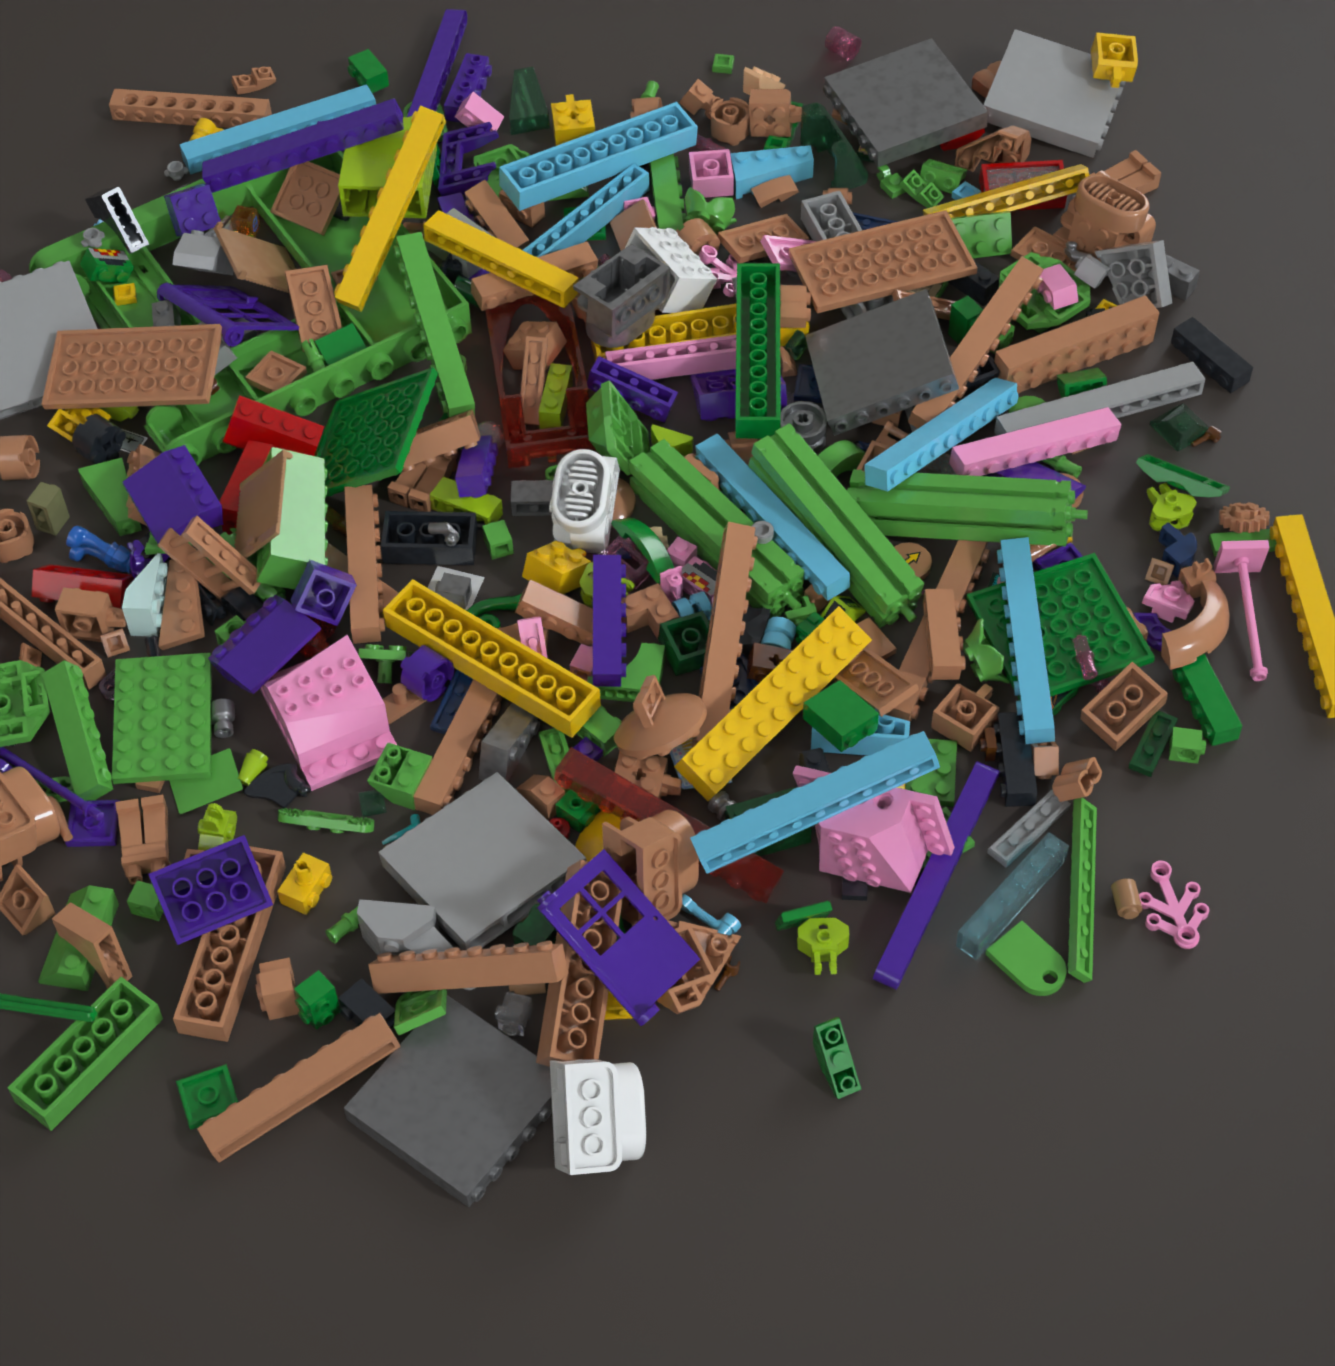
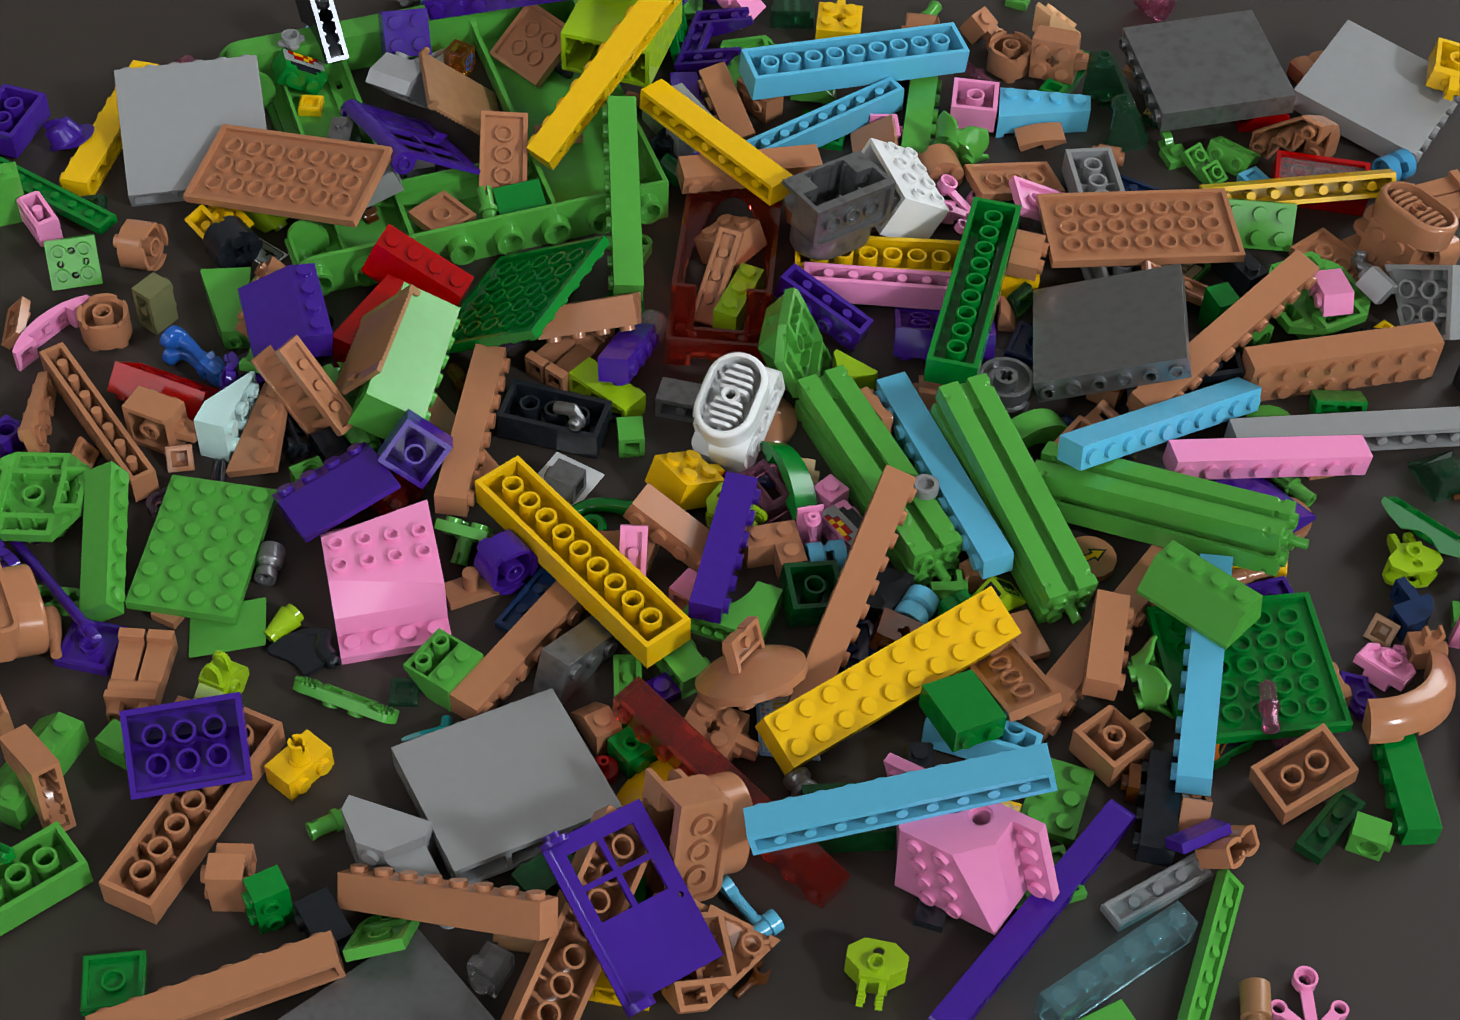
camera: 10 degrees right, 5 degrees down
(801, 915) = (853, 931): green tile -> none
(1009, 576) = (1200, 595): none -> bright green slope
(1052, 776) = (1198, 835): none -> dark purple tile
(1085, 153) = (1400, 161): none -> dark azure wheel

